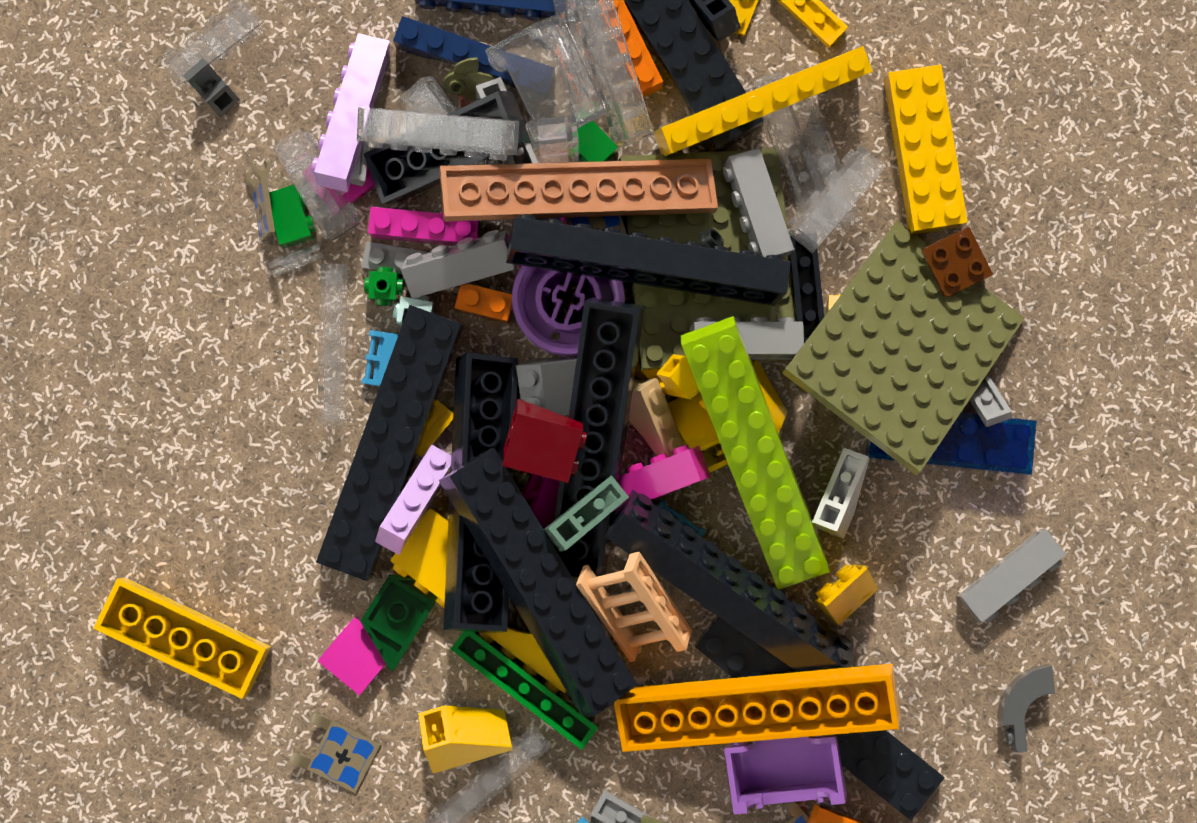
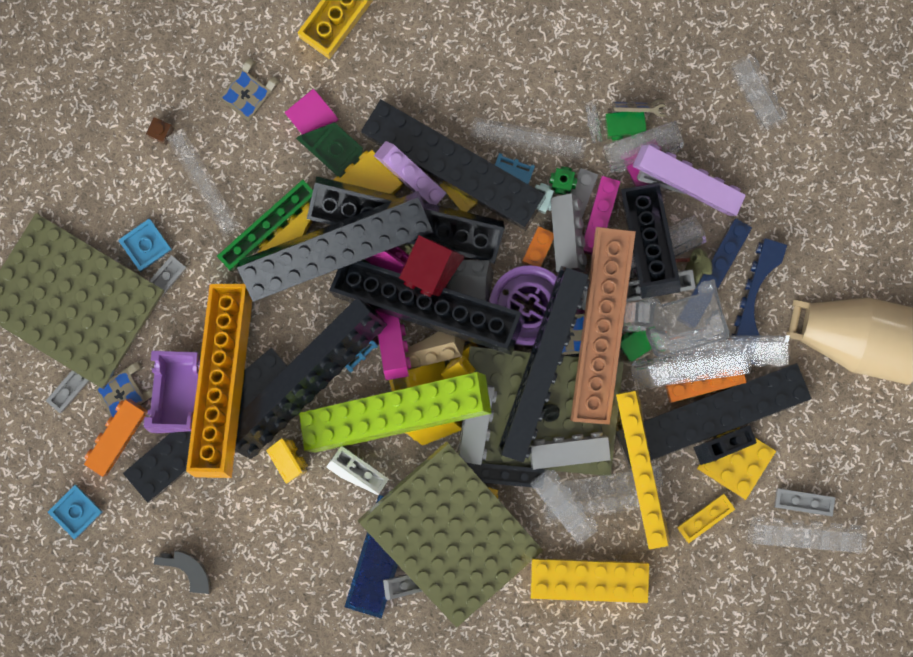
camera: 105 degrees right, 0 degrees up
(211, 87) = (726, 86): dark grey brick -> none
(437, 131) = (660, 234): clear brick -> none
(462, 735) = (242, 177): yellow slope -> none
(585, 514) = (375, 287): sand green slope -> none
(648, 591) = (315, 319): light nougat fence -> none
(956, 262) = (504, 585): reddish brown bracket -> none
(1012, 575) = (277, 580): light grey brick -> none

